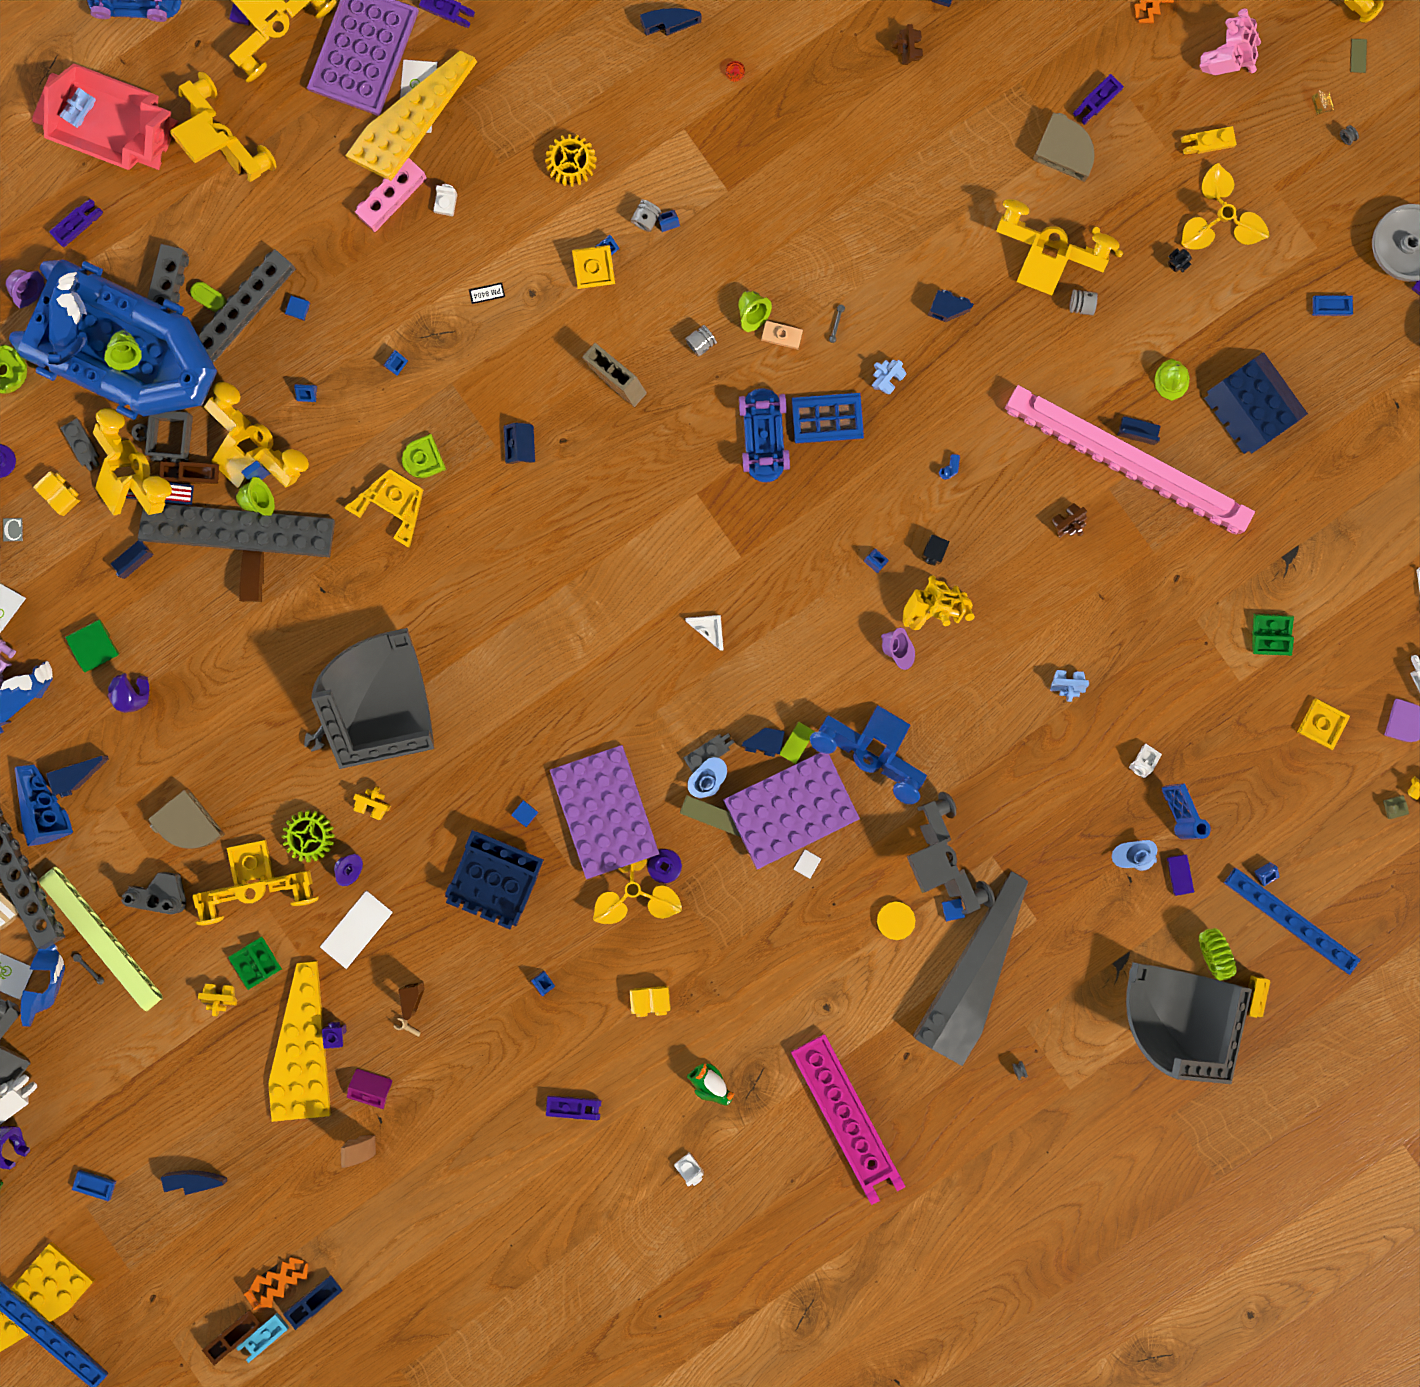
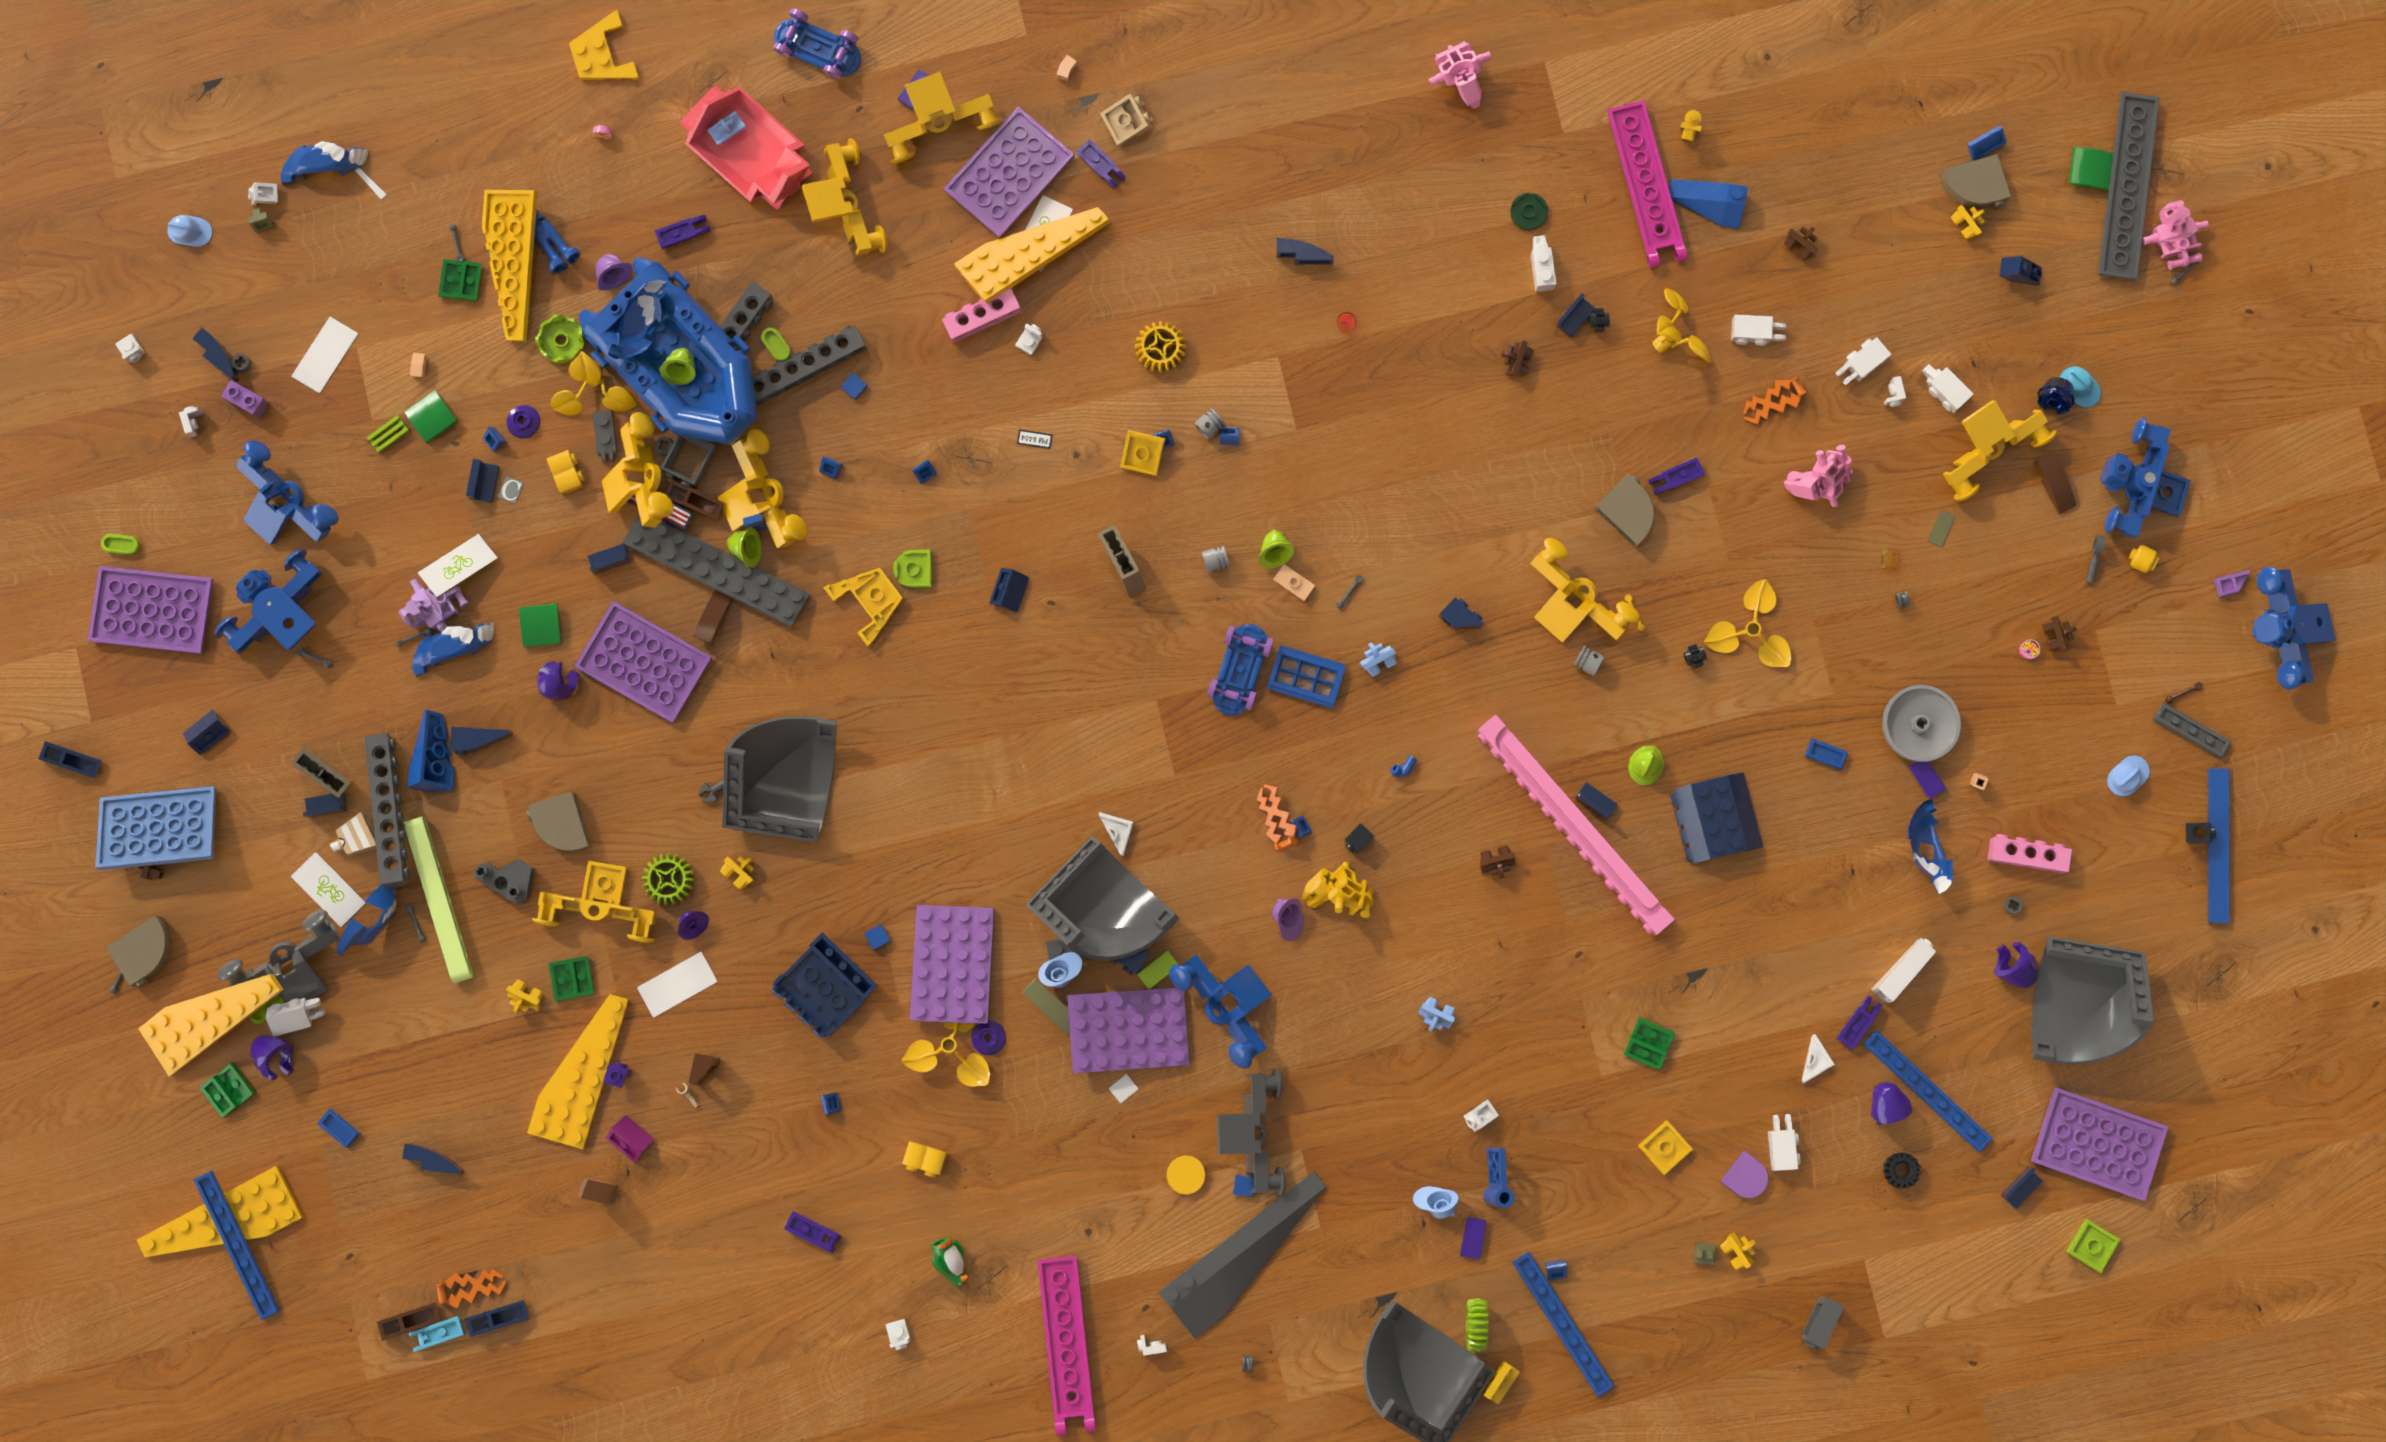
camera: 30 degrees right, 5 degrees down
(33, 386) = (586, 370): none -> yellow plant
(203, 643) = (643, 662): none -> medium lavender plate
(722, 705) = (1101, 906): none -> dark grey panel
(846, 554) = (1272, 811): none -> orange piece
(930, 1089) = (1154, 1348): none -> white bracket
(1210, 140) = (1768, 555): yellow hinge -> none

